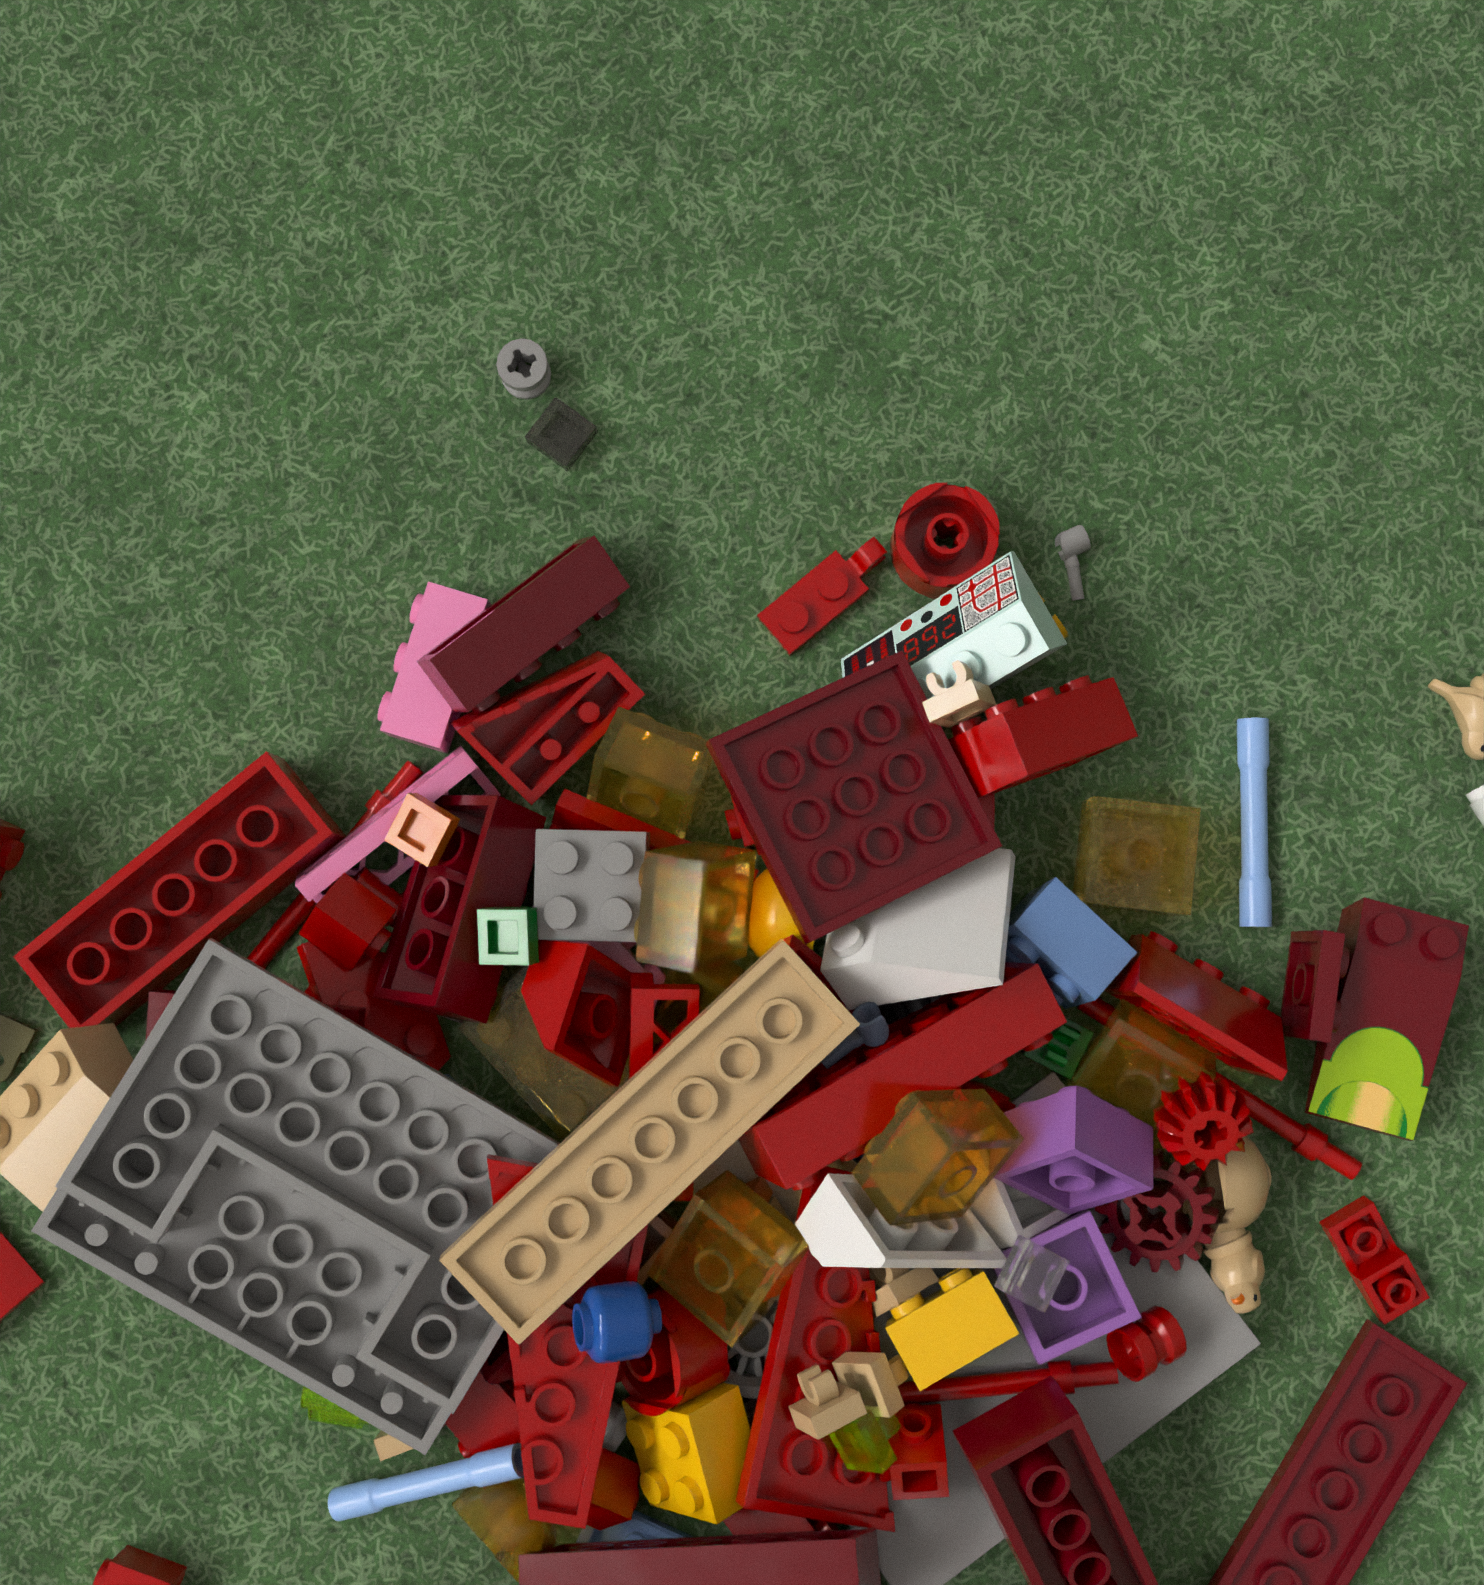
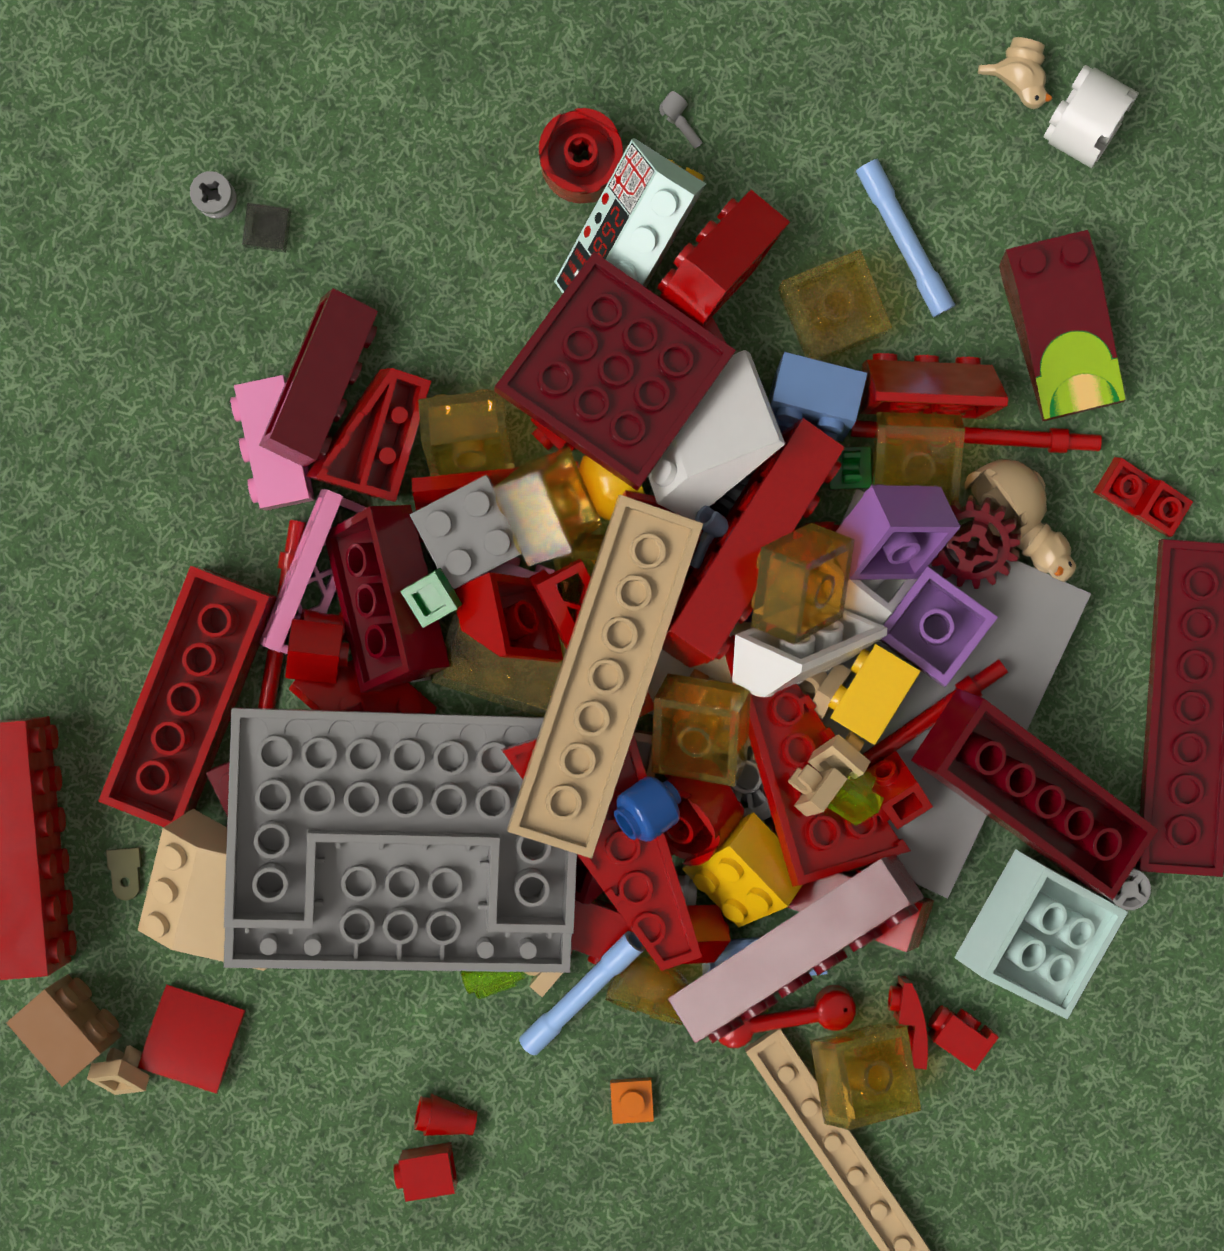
camera: 35 degrees left, 5 degrees up
(193, 1535) = (443, 1117): none -> red cone
(422, 829) = (330, 559): plate -> none
(820, 596) = (515, 244): red plate -> none
(958, 702) = (653, 265): tile -> none
(1031, 1273) = (908, 627): clear tile -> none
(1146, 1343) = (1015, 630): red wheel -> none
(1203, 1120) = (971, 463): red gear -> none
(1312, 984) = (997, 320): dark red plate -> none

